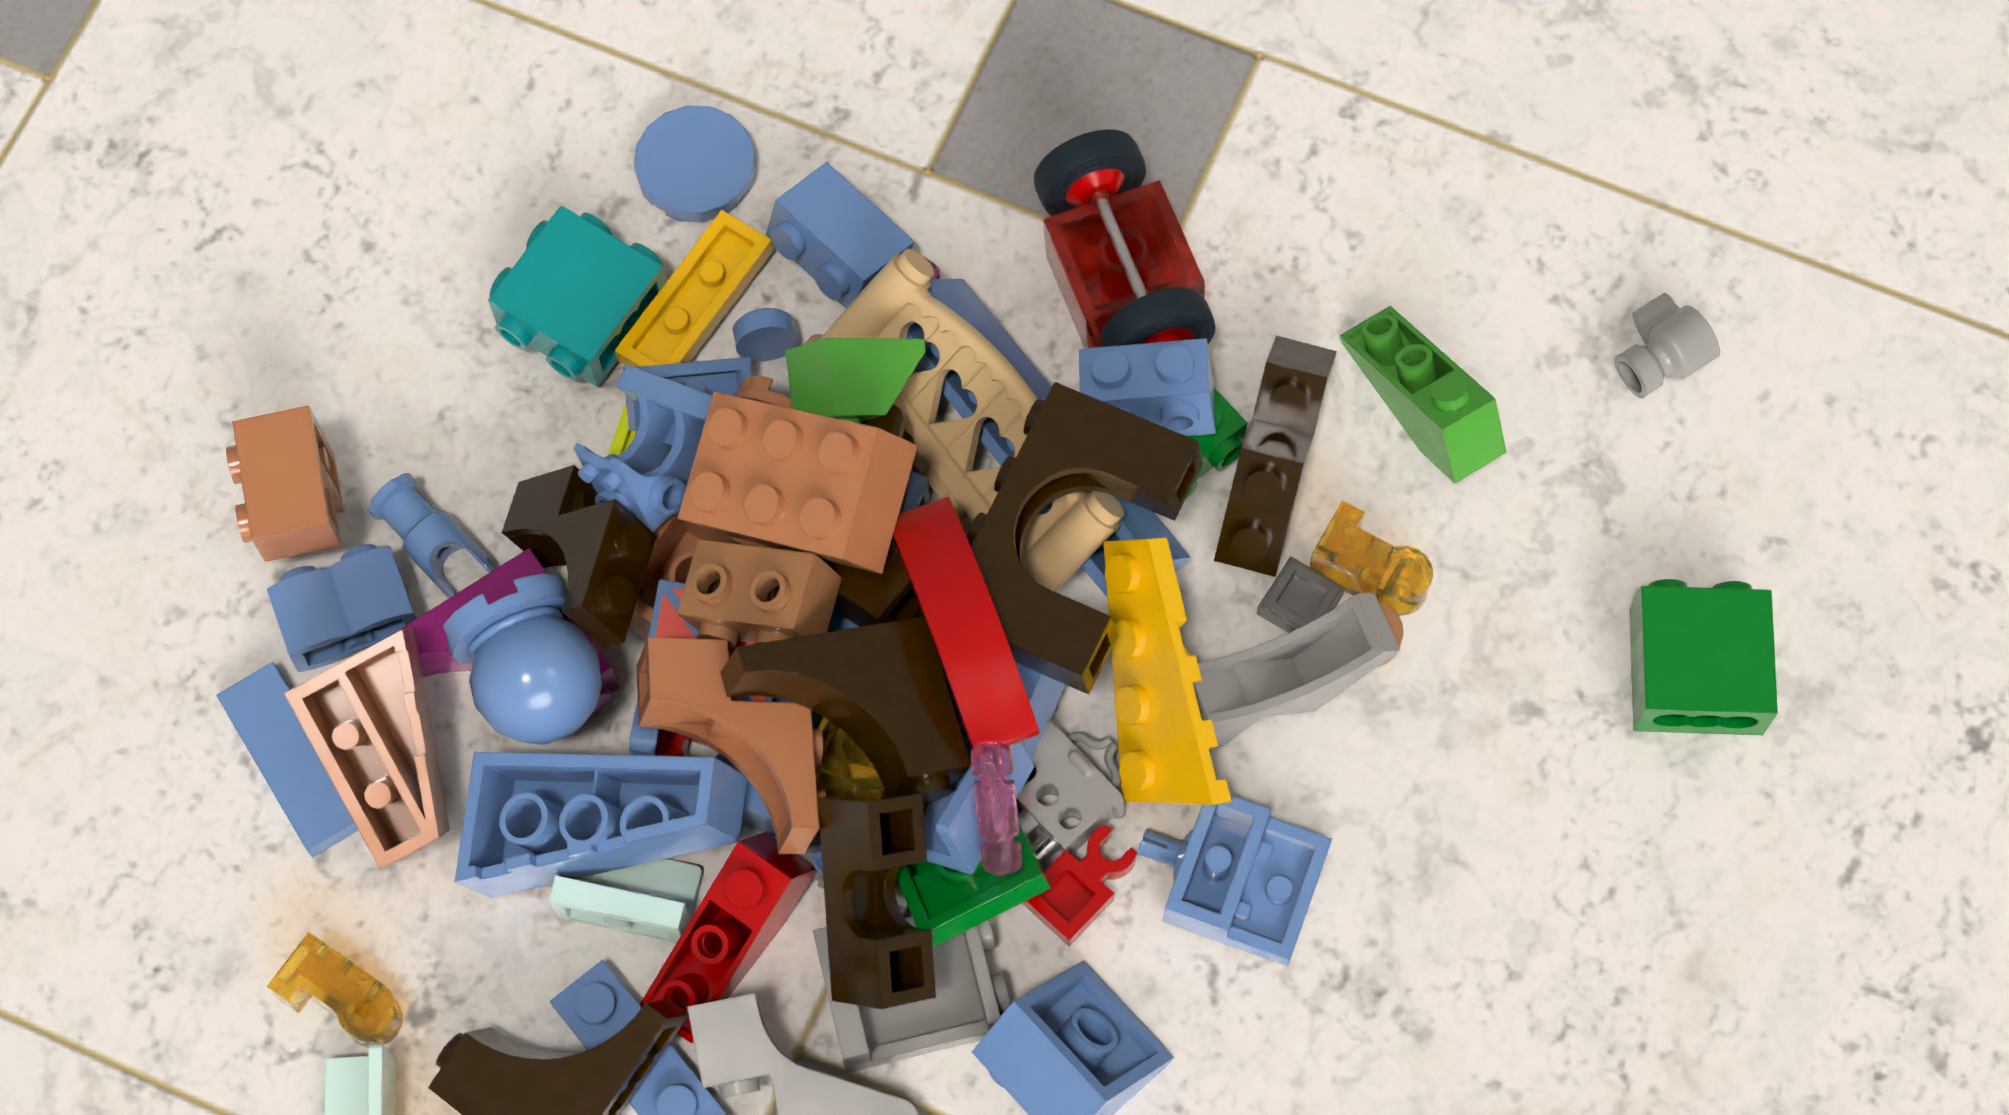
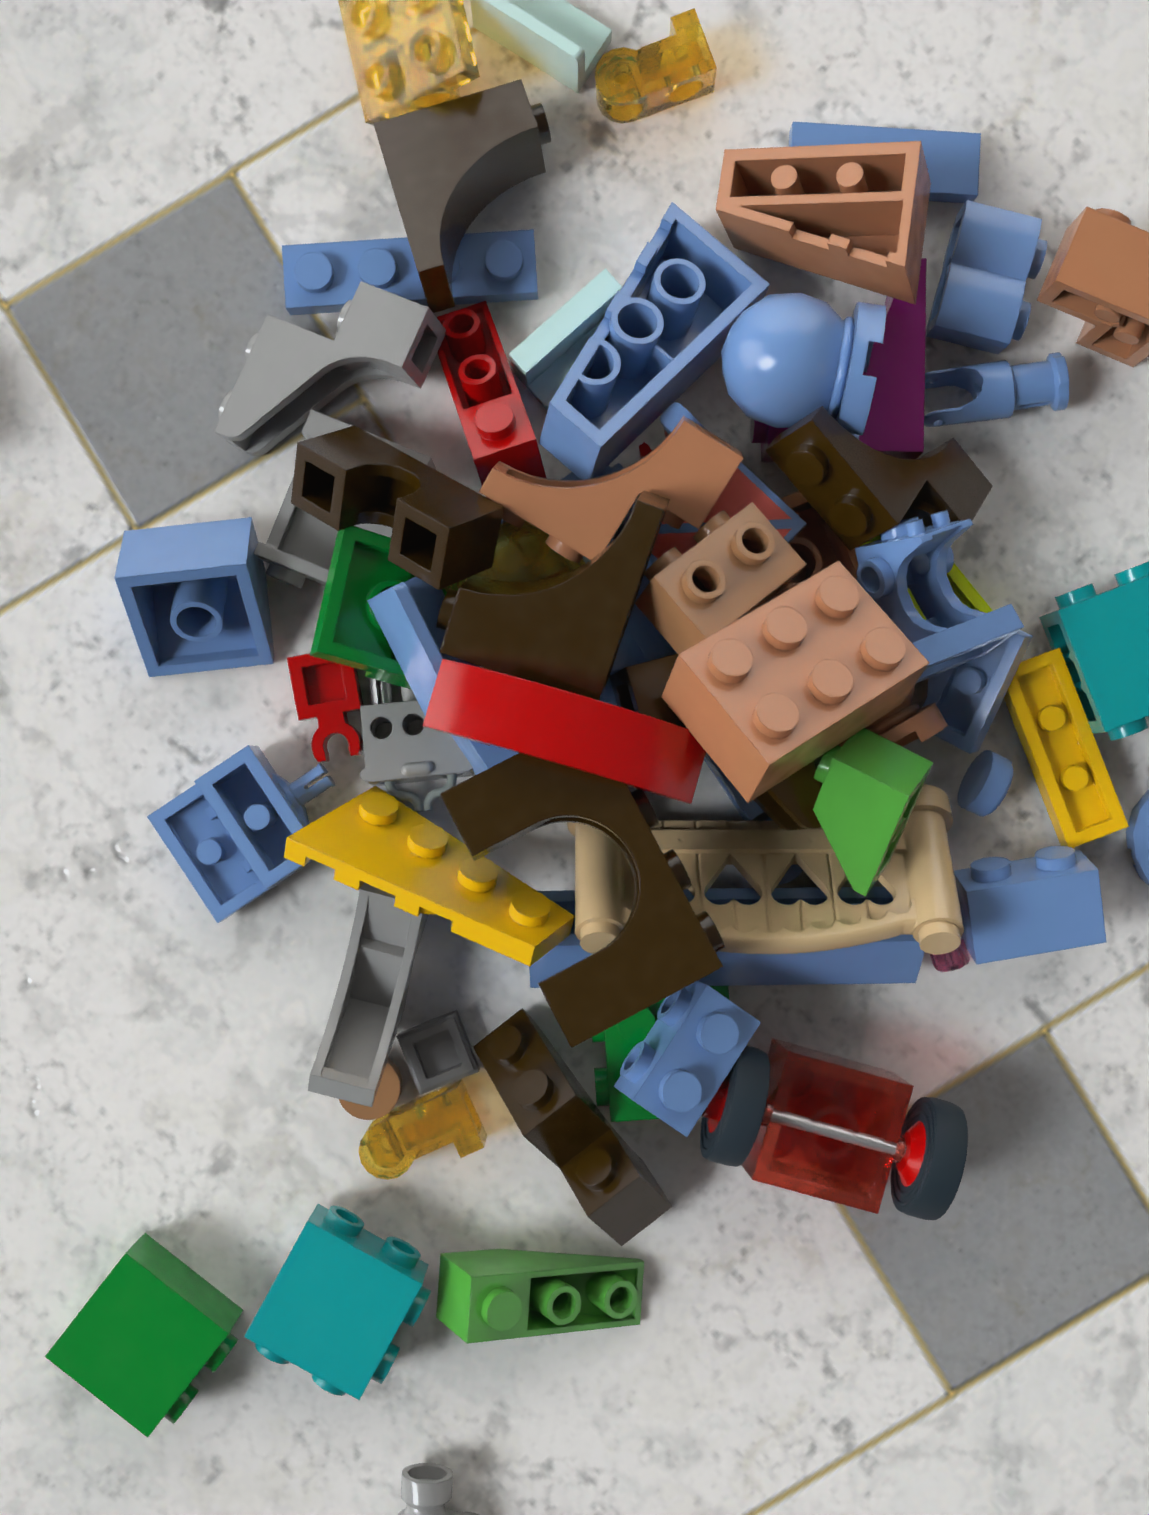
camera: 125 degrees right, 20 degrees up
(996, 808) = (388, 647): clear pink axle -> none
(1551, 528) = (341, 1302): none -> teal brick

